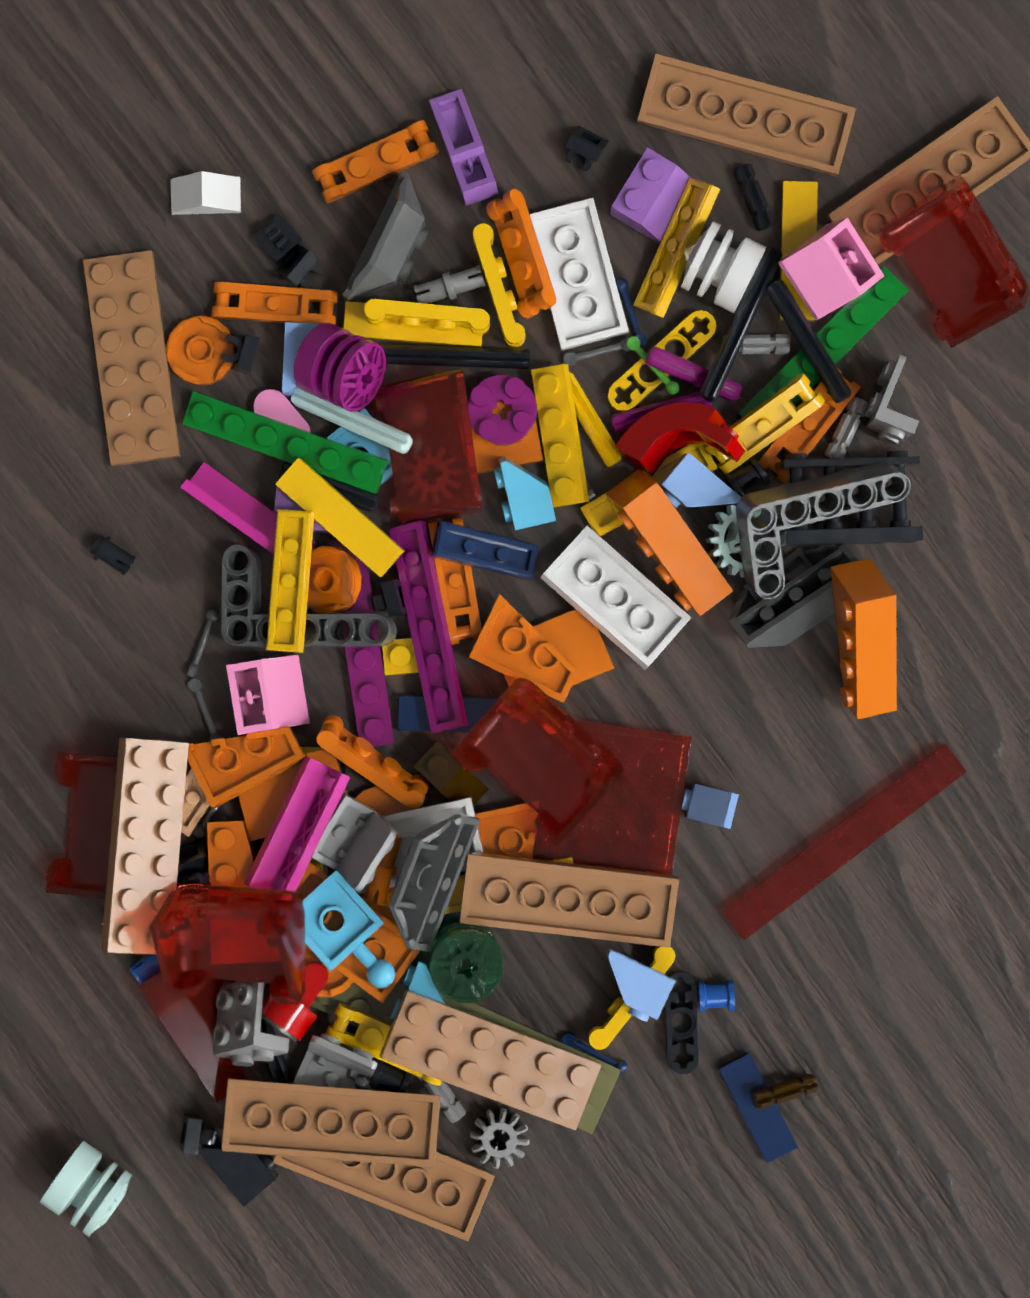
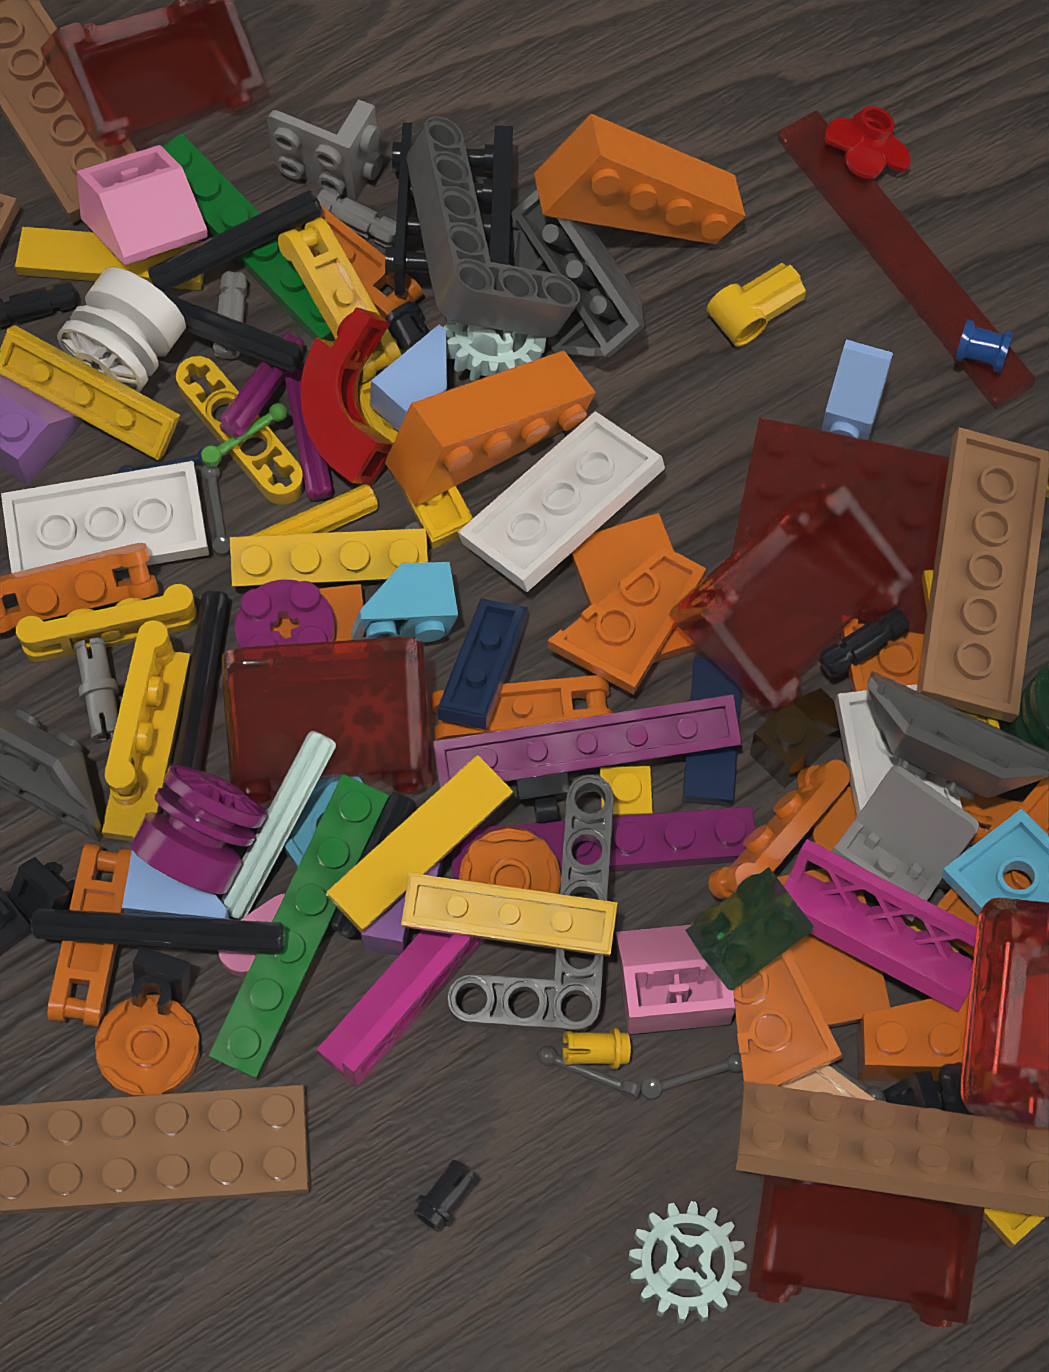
camera: 85 degrees left, 20 degrees down
(67, 701) = (705, 1247): none -> light aqua gear
(216, 647) = (597, 1048): none -> yellow pin
(269, 348) = (158, 930): none -> black axle
(287, 740) = (749, 928): none -> clear green bracket
(515, 816) = (864, 642): none -> black axle
(760, 899) = (983, 346): none -> blue bush
(787, 725) = (747, 309): none -> yellow piece
(932, 809) = (868, 142): none -> red plate

